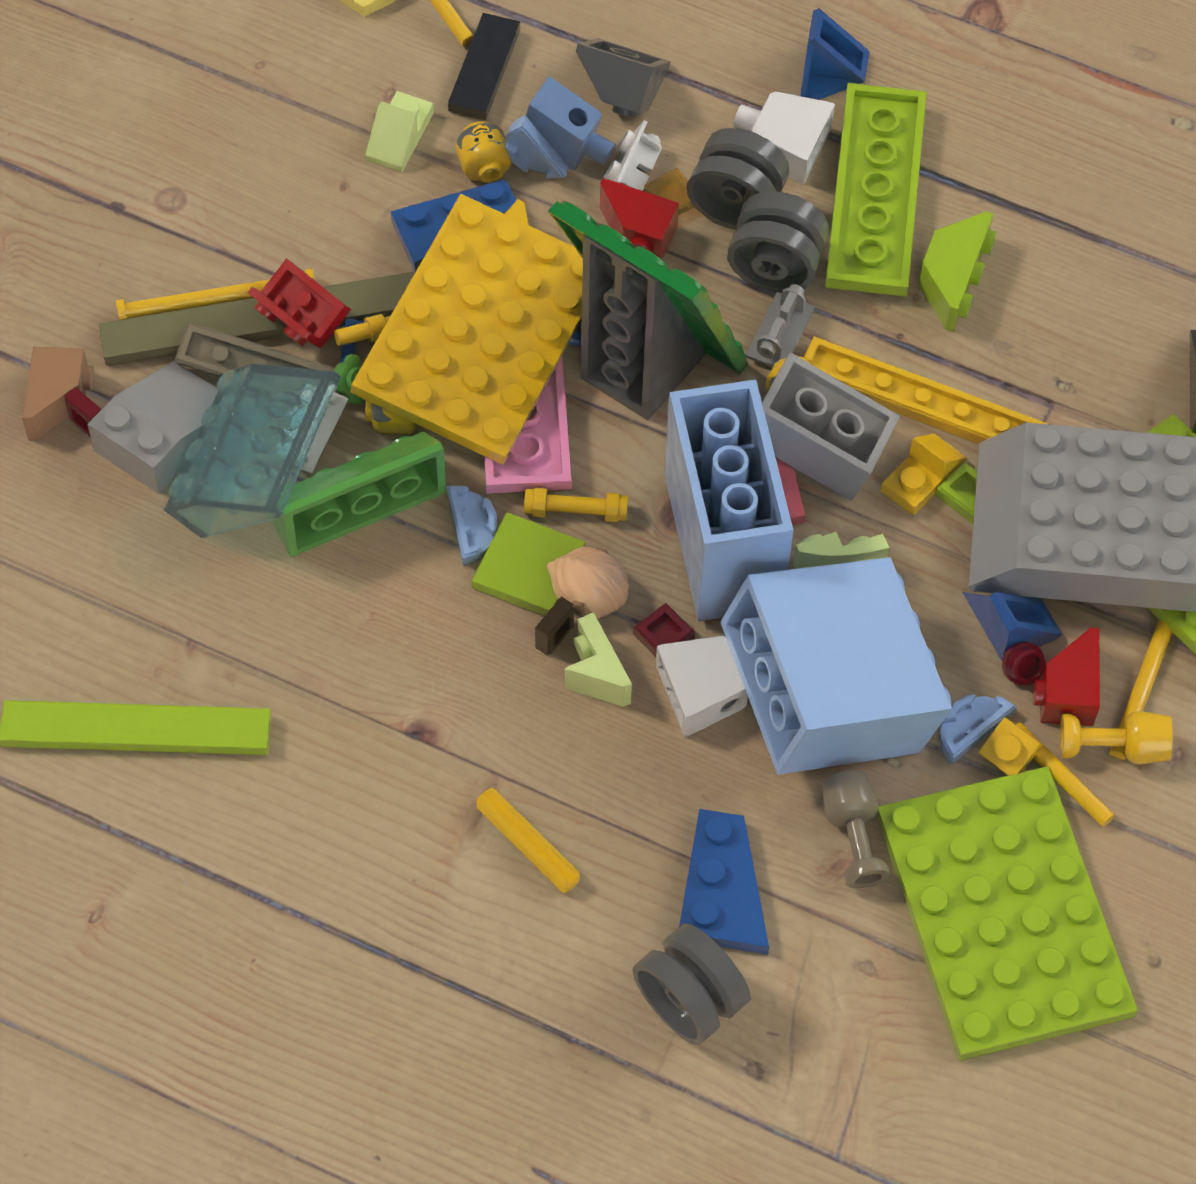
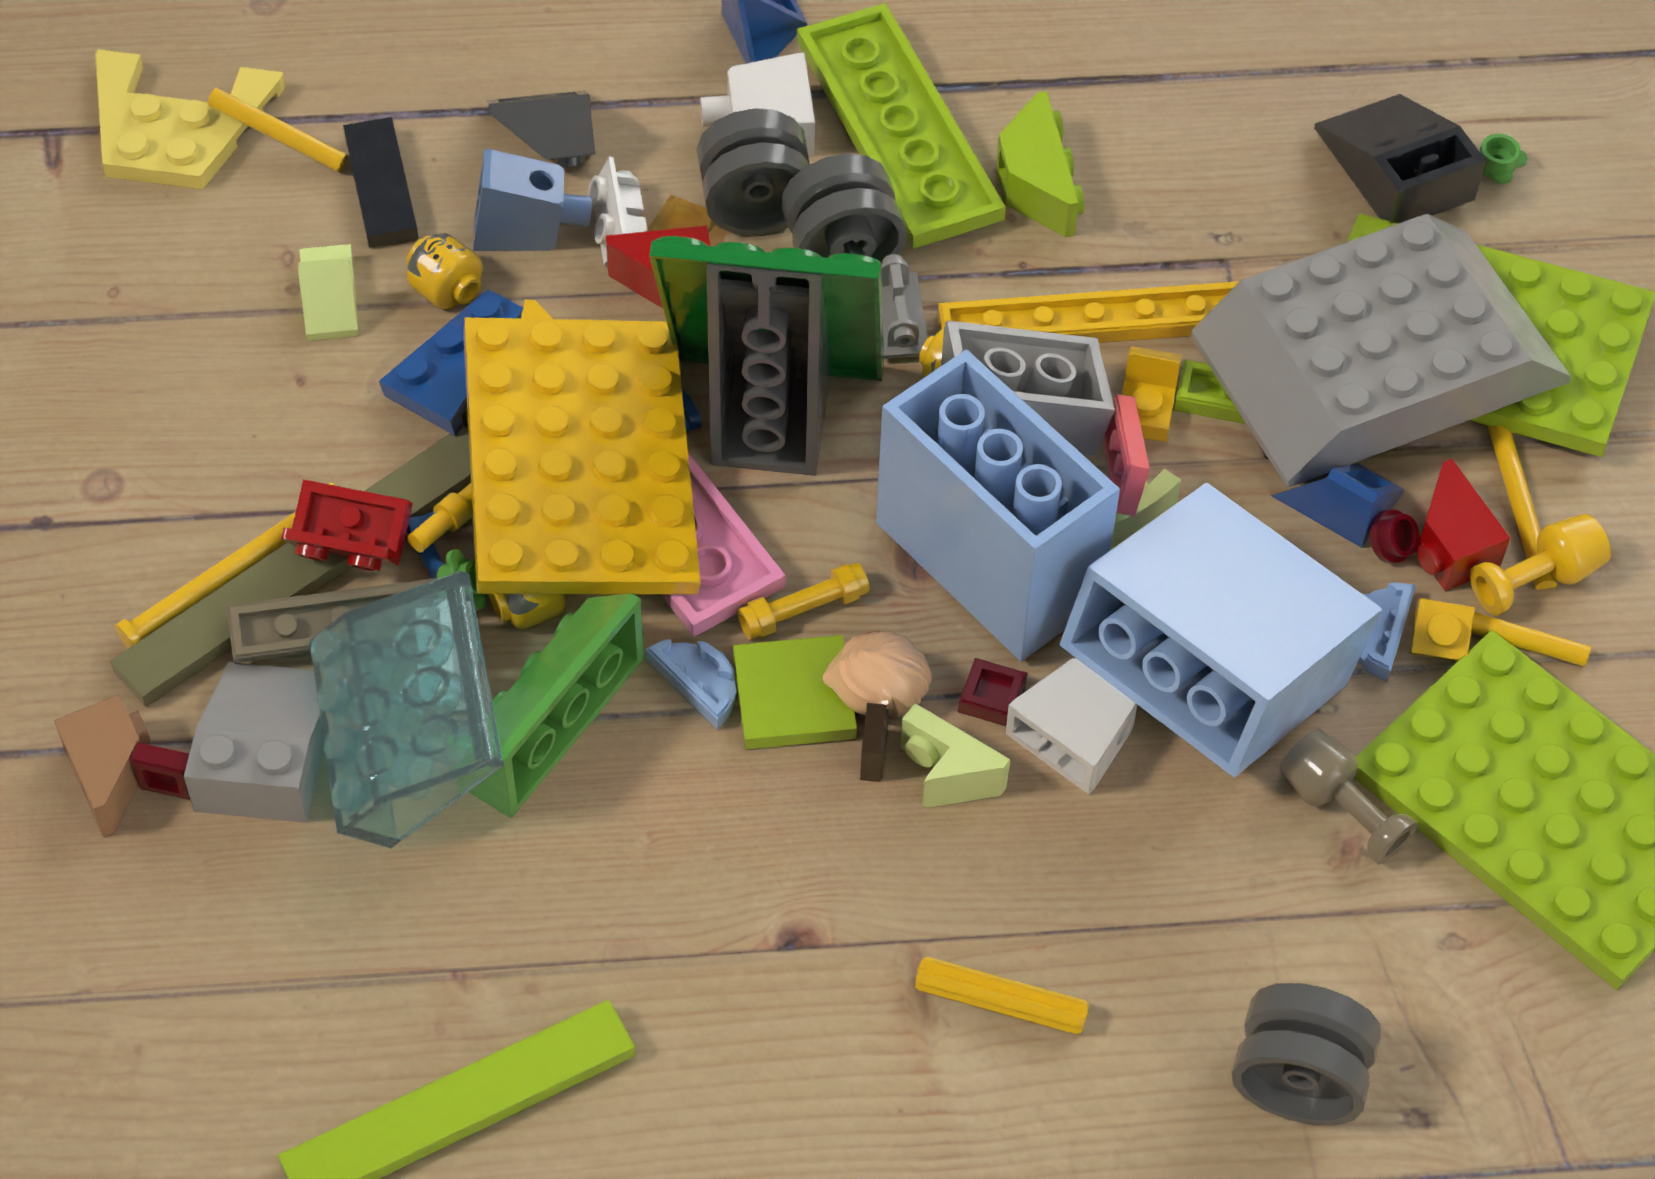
camera: 30 degrees left, 5 degrees down
(532, 151) = (502, 243): light blue tile -> none
(723, 885) = (1244, 930): blue wing -> none
(858, 509) = (1126, 454): none -> coral tile

